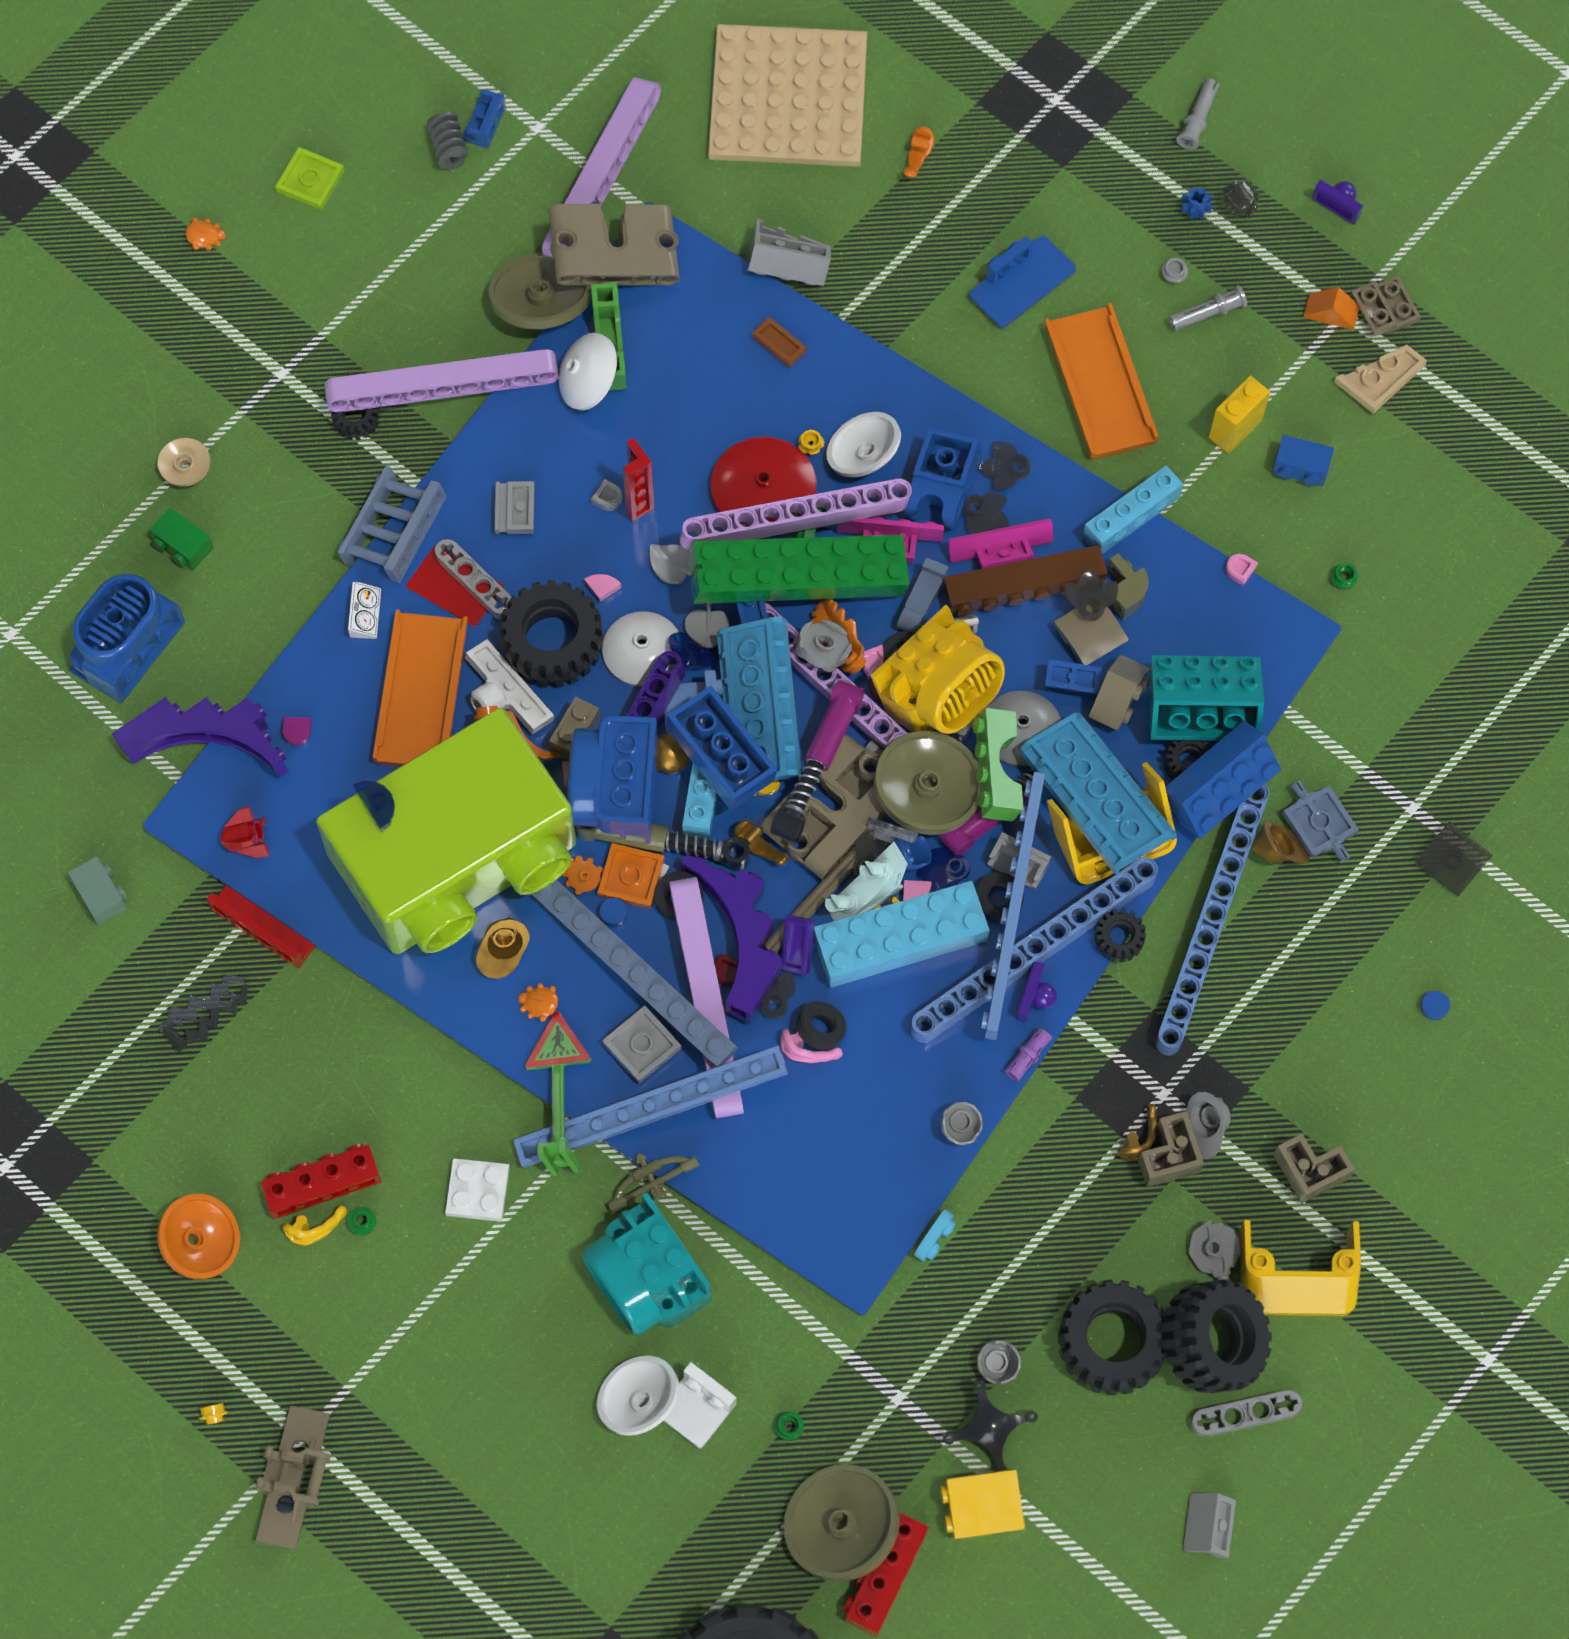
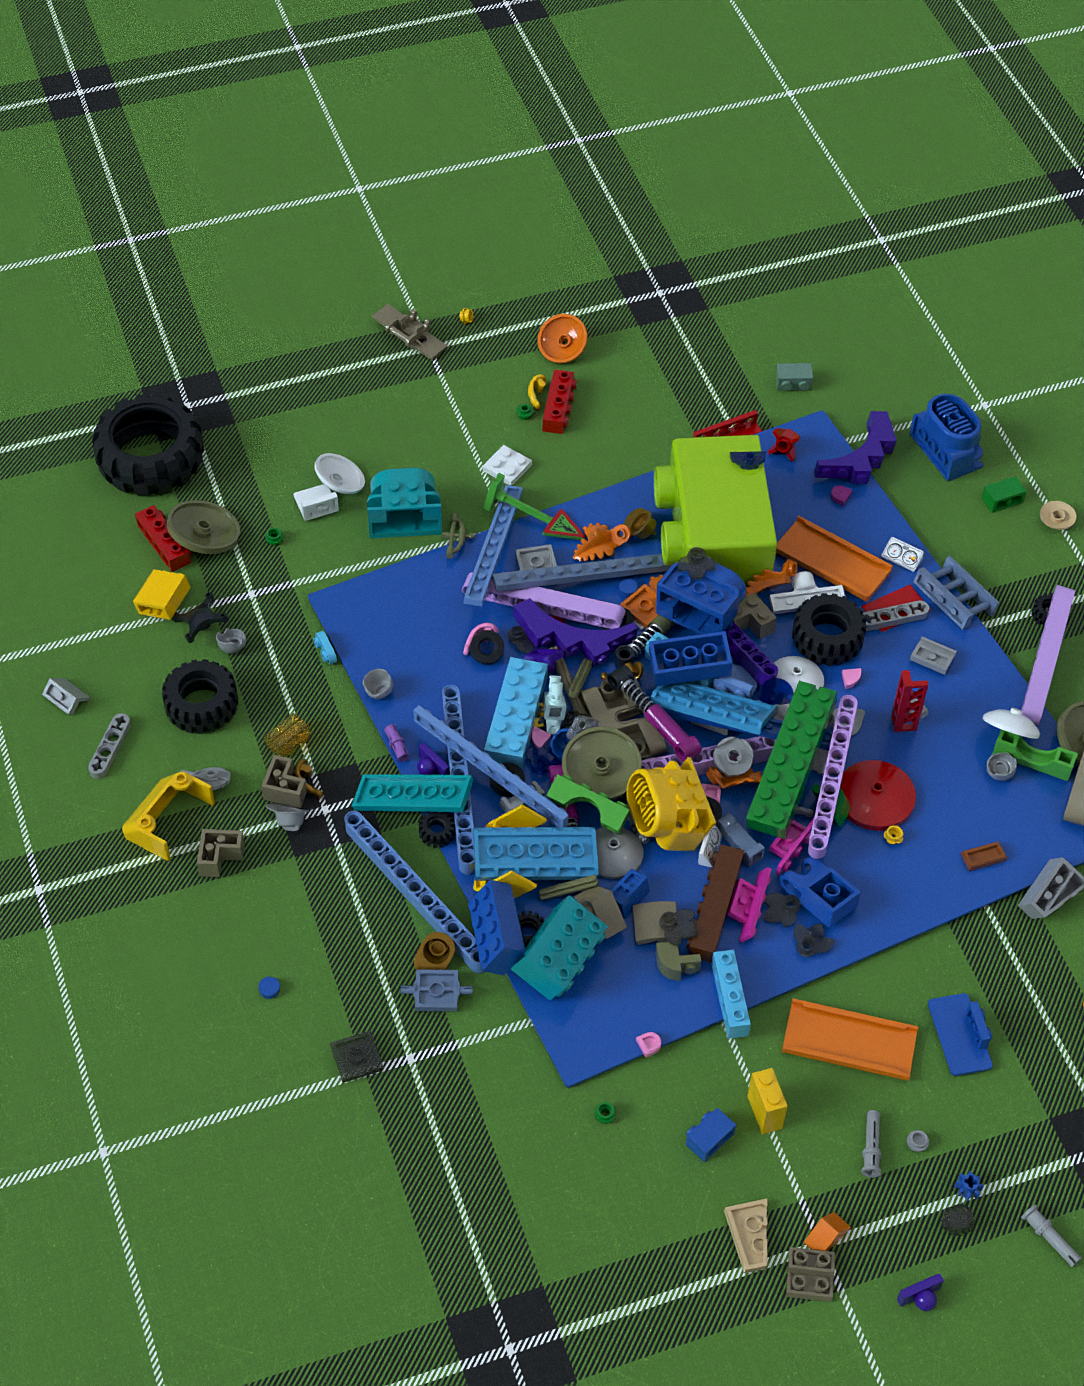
camera: 120 degrees right, 15 degrees down
(213, 1004) = (697, 383): piece -> none
(561, 975) = (602, 542): none -> orange plant
(595, 785) = (696, 563): none -> clear smoke plate
(646, 365) = (1001, 766): none -> light grey hair
(801, 887) = (580, 678): none -> olive axle
(864, 444) = (871, 855): white dish -> none
(1097, 984) = (413, 793): none -> teal plate
(1097, 1196) = (287, 736): none -> clear yellow brick
(1103, 730) = (568, 887): none -> olive axle
(1189, 1340) = (135, 734): black tyre -> none

